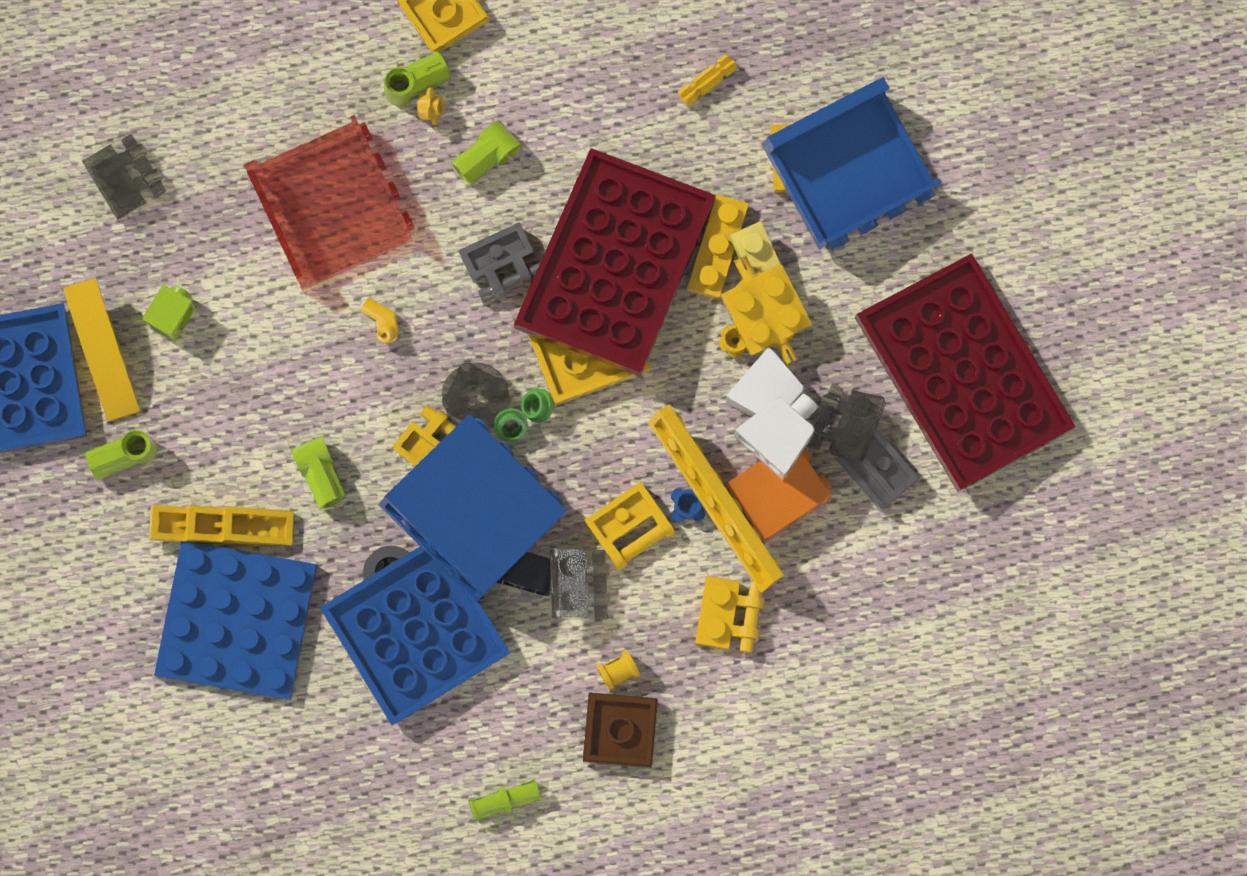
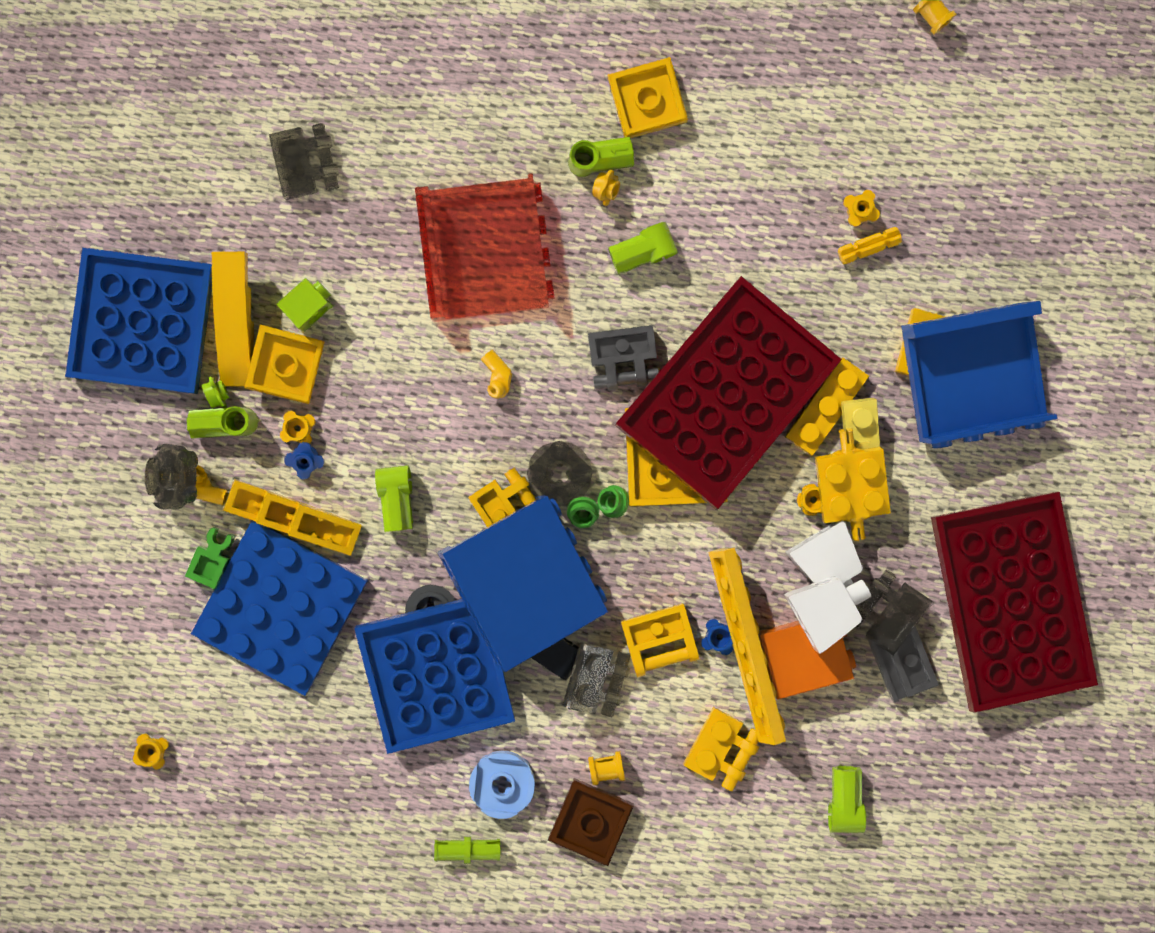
camera: 15 degrees right, 10 degrees up
(103, 522) = (182, 465): none -> clear smoke plate
(106, 427) = (215, 393): none -> lime plate
(120, 527) = (206, 491): none -> yellow arm
(140, 804) = (143, 758): none -> yellow plate
(151, 598) = (209, 563): none -> bright green plate
(166, 378) = (284, 364): none -> yellow plate
(190, 431) = (291, 421): none -> yellow plate
(218, 474) = (307, 452): none -> blue plate
(530, 706) = (488, 797): none -> light blue plate
(683, 56) = (856, 216): none -> yellow plate
(870, 630) = (846, 808): none -> lime piece

